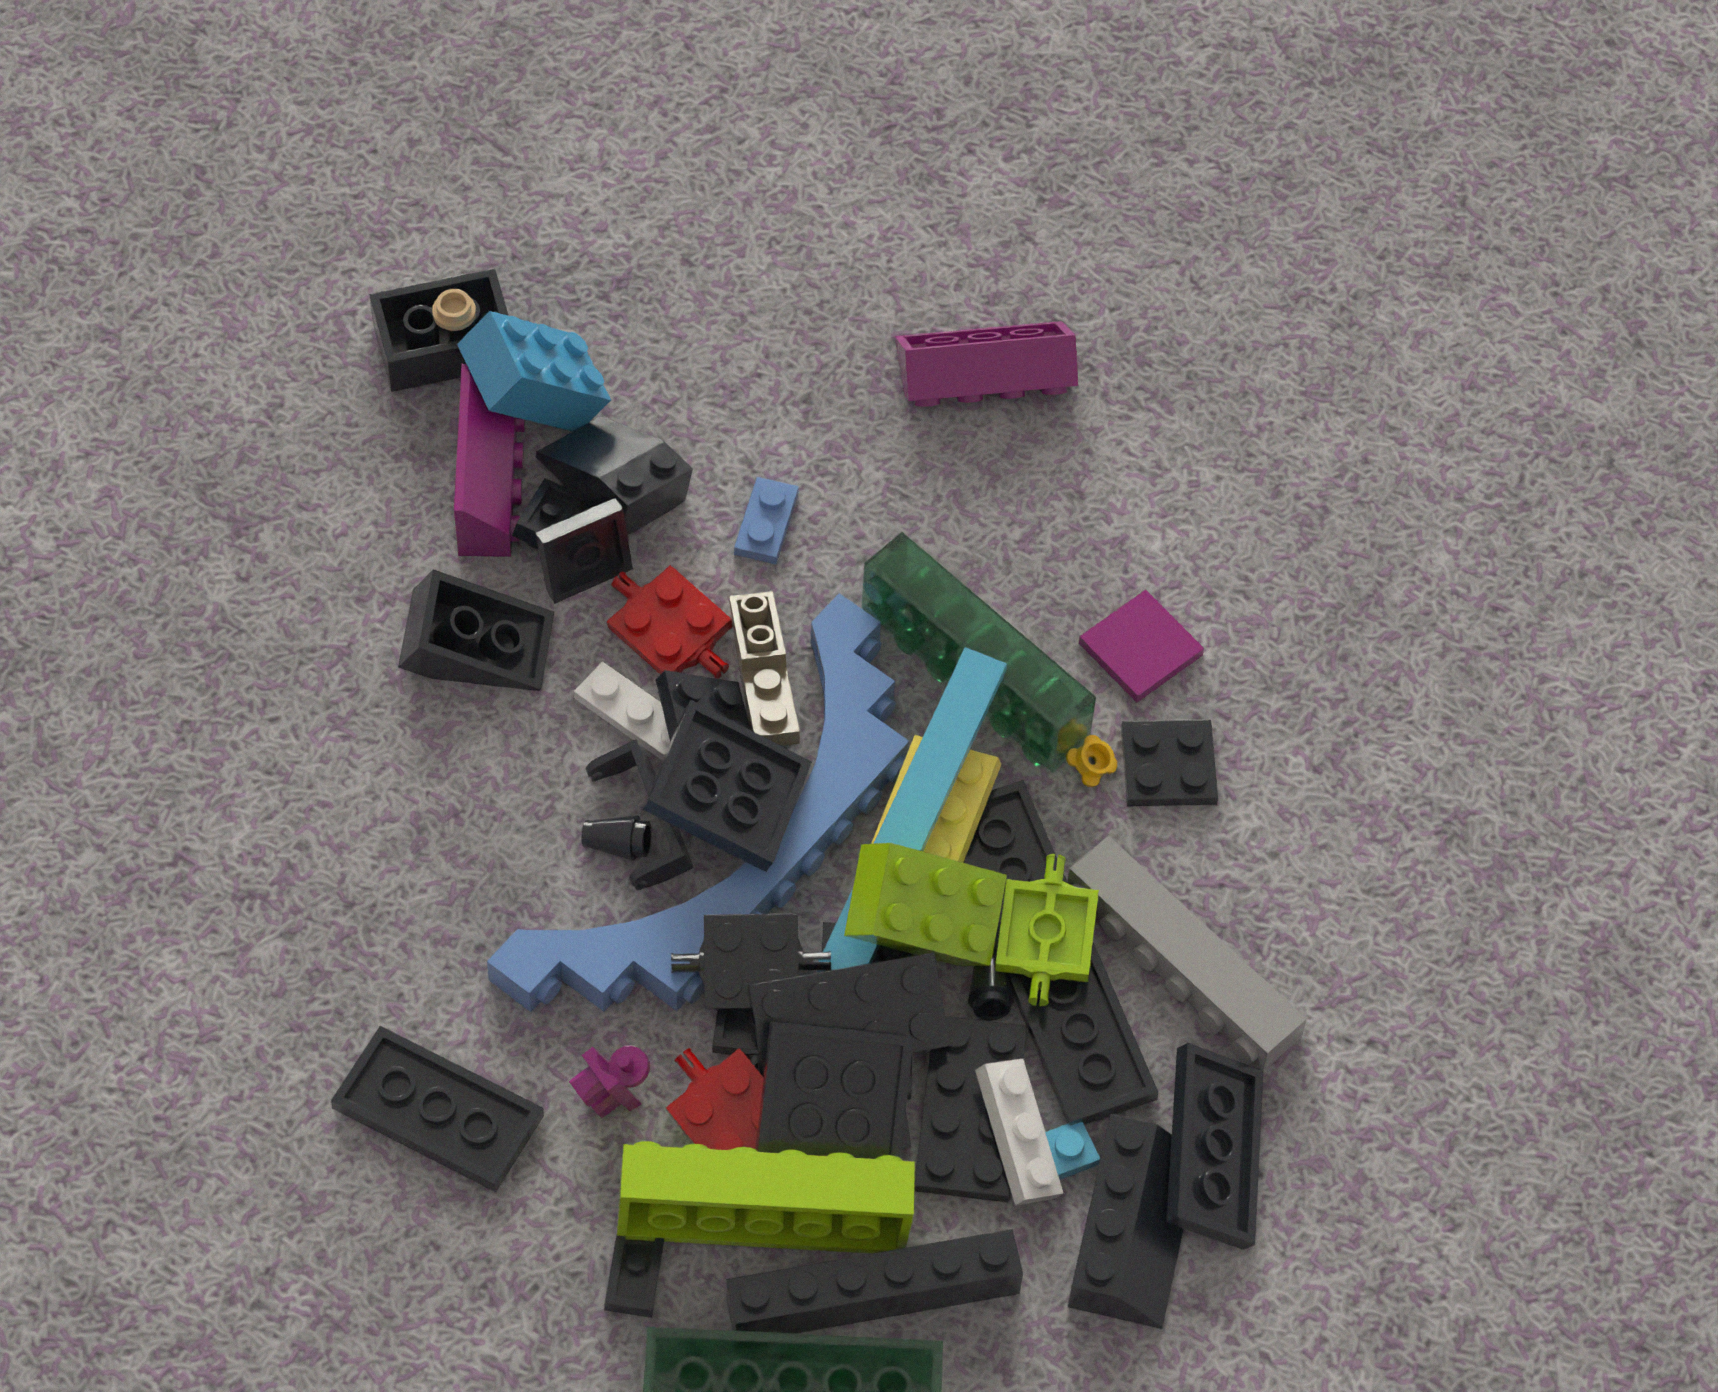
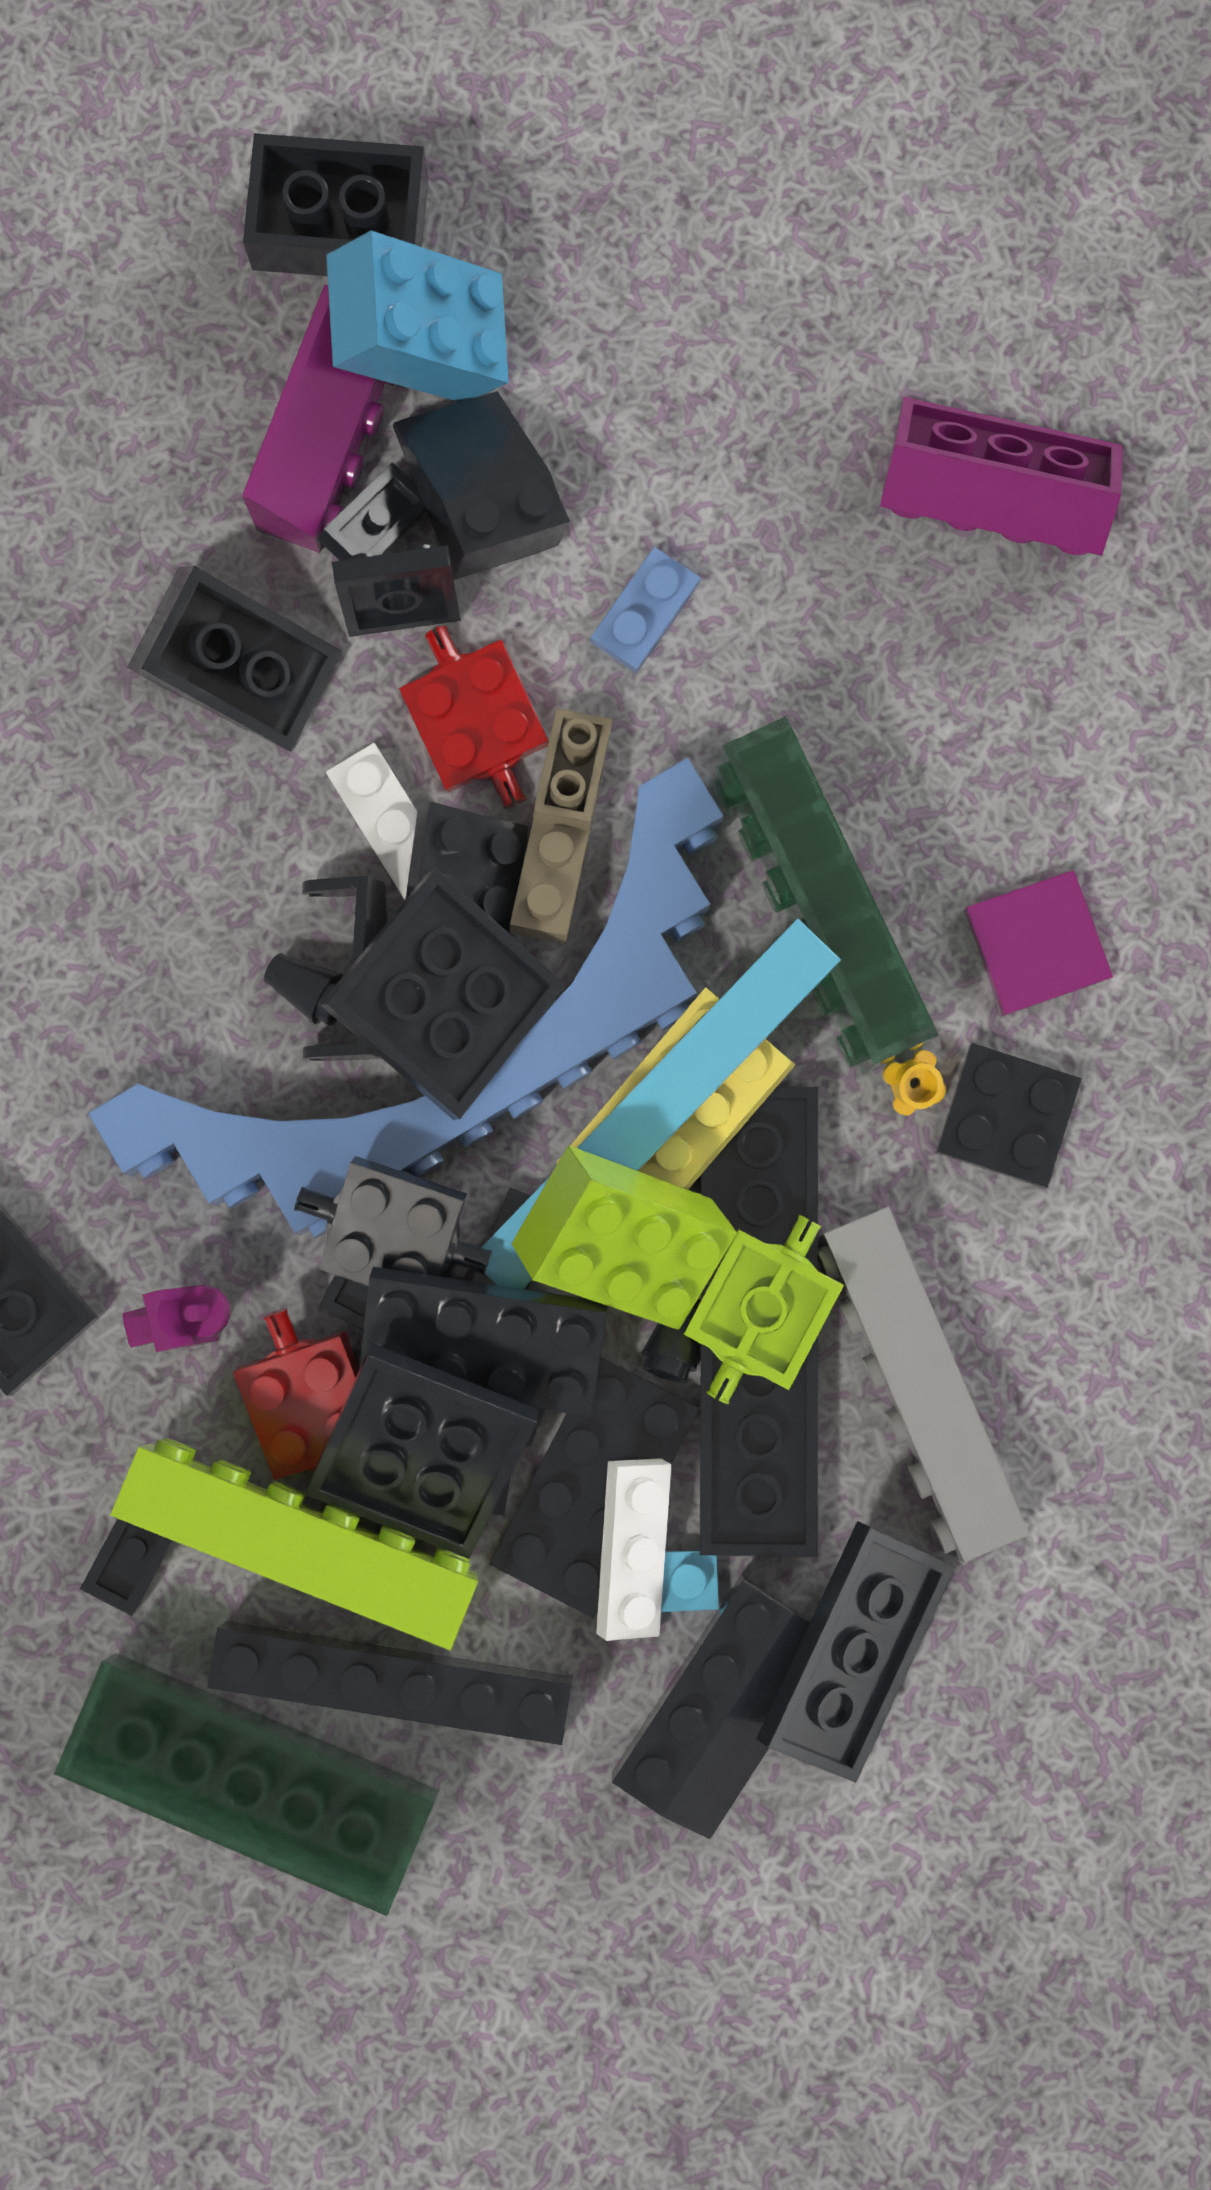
camera: 25 degrees right, 25 degrees up
(454, 310) = (346, 197): tan plate -> none

